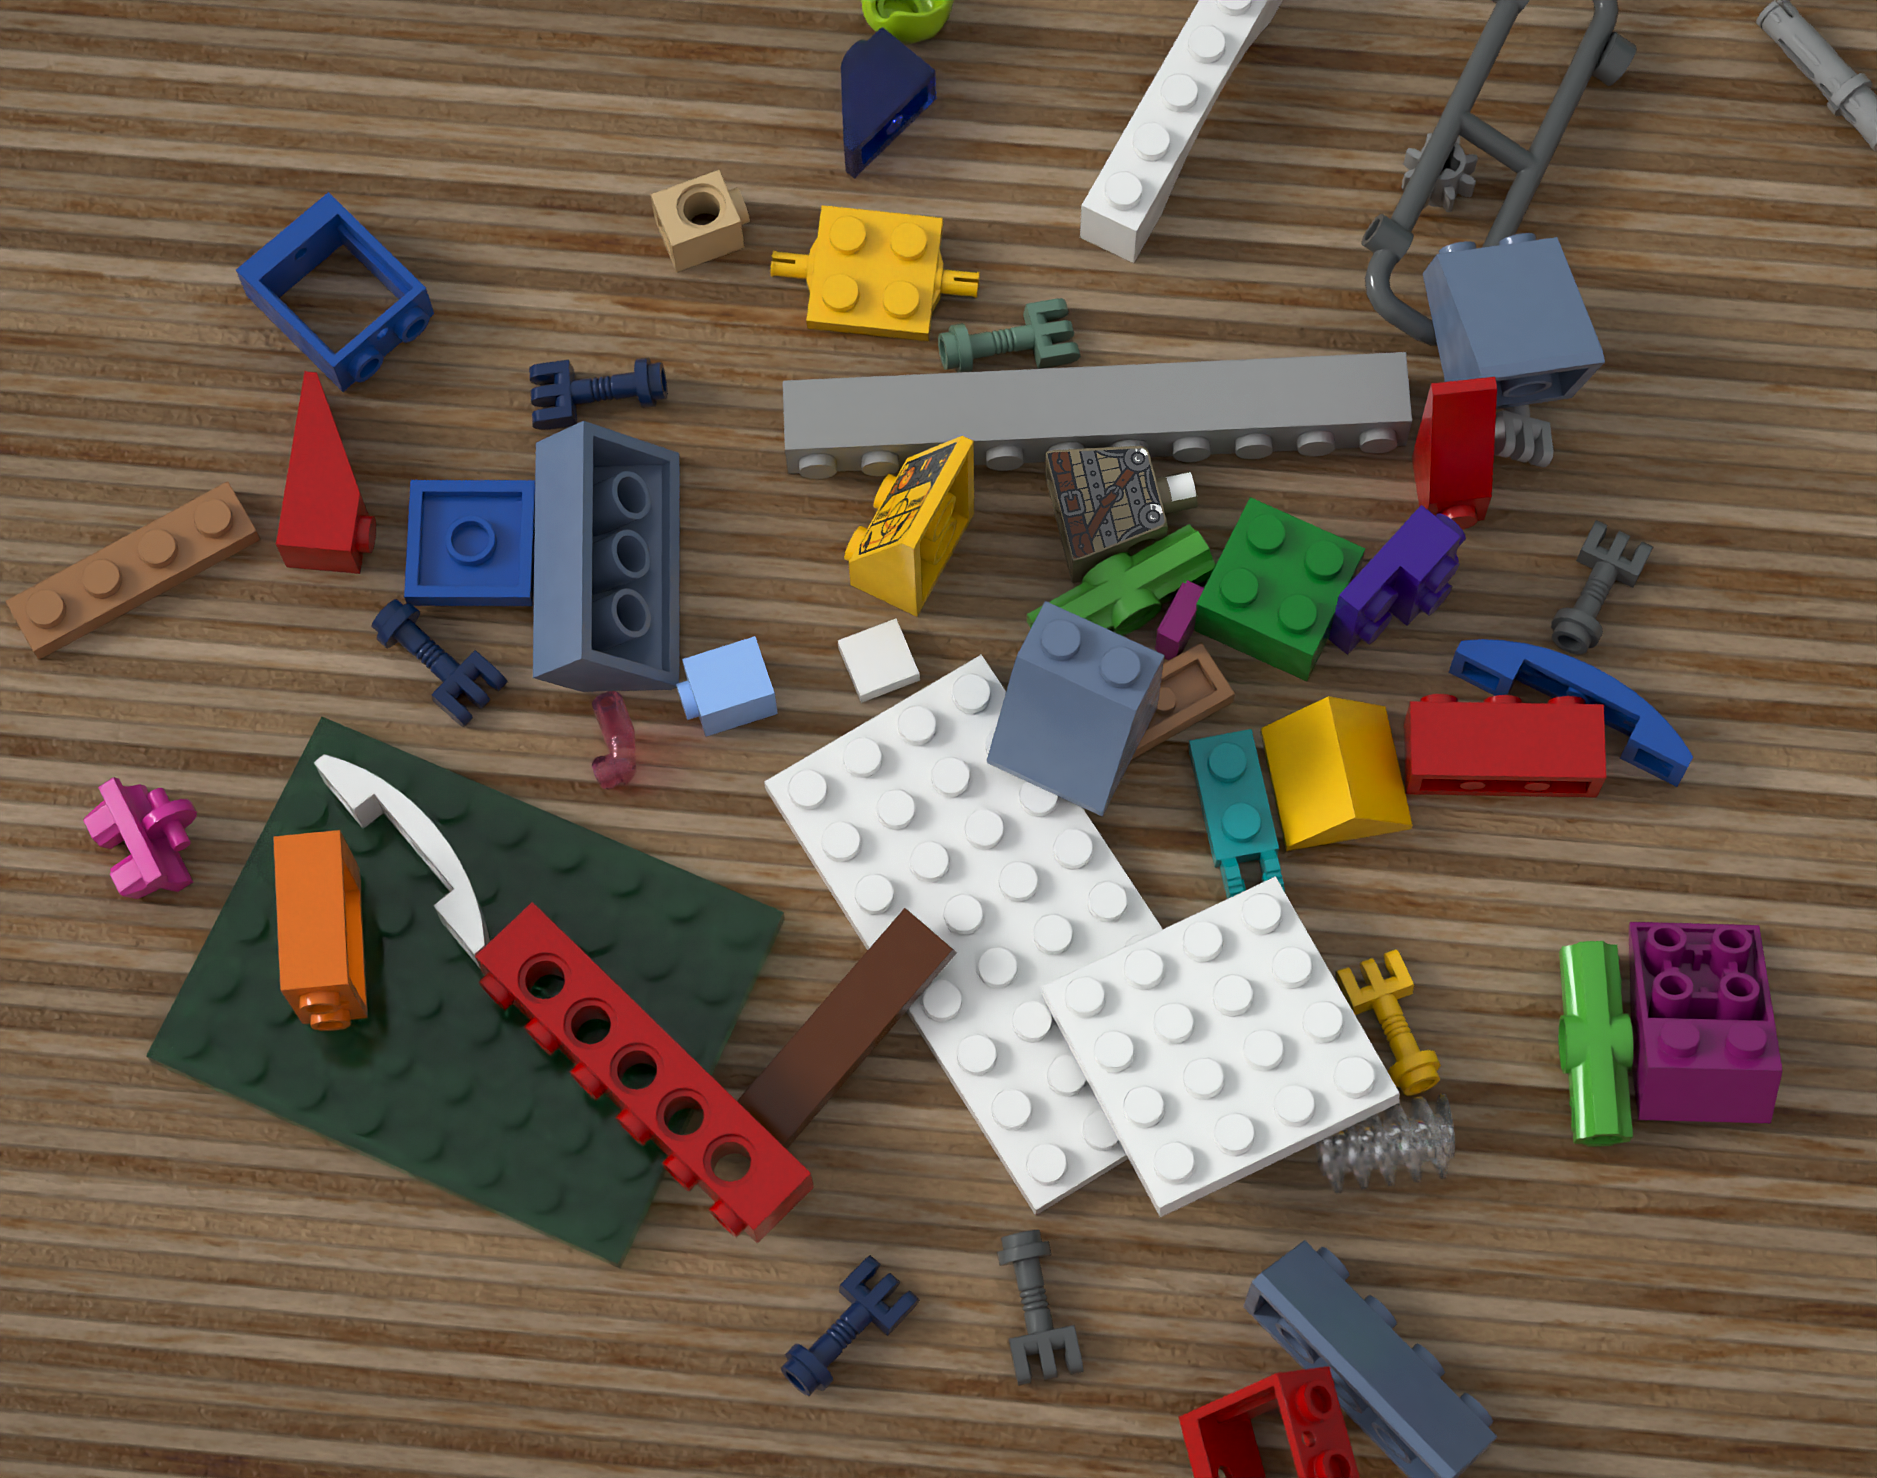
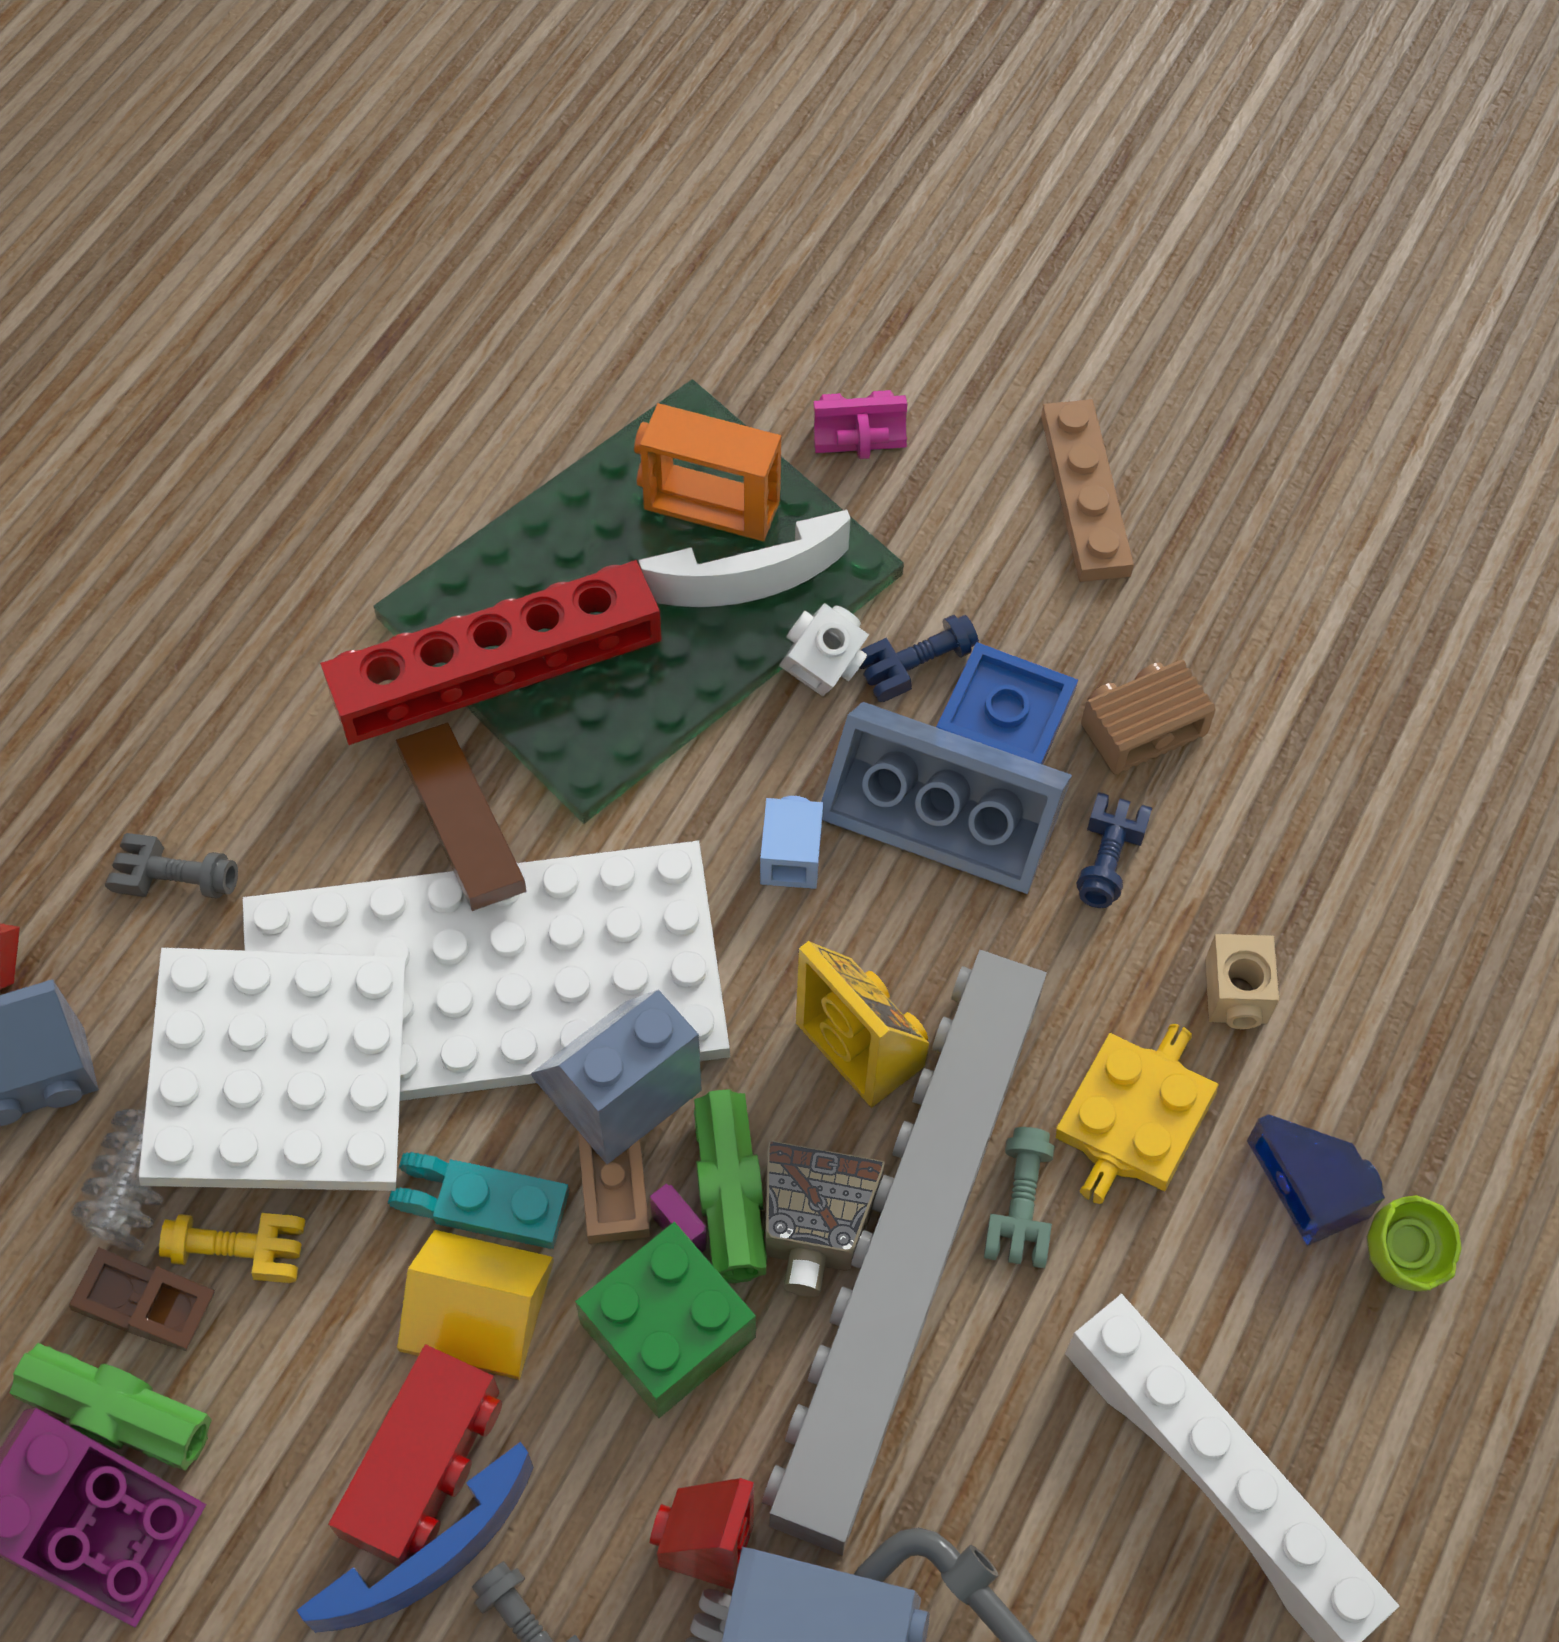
camera: 110 degrees right, 10 degrees down
(303, 248) = (1317, 661): blue window -> none
(322, 506) = (1100, 623): red slope -> none
(423, 402) = (1147, 715): none -> medium nougat brick
(482, 741) = (814, 661): none -> white brick
(619, 738) = (790, 754): clear pink arm -> none
(808, 1367) = (221, 698): dark blue hinge -> none
(878, 660) = (766, 971): white tile -> none
(1402, 578) = (616, 1435): dark purple plate -> none
(1484, 1079) = (141, 1299): none -> reddish brown slope

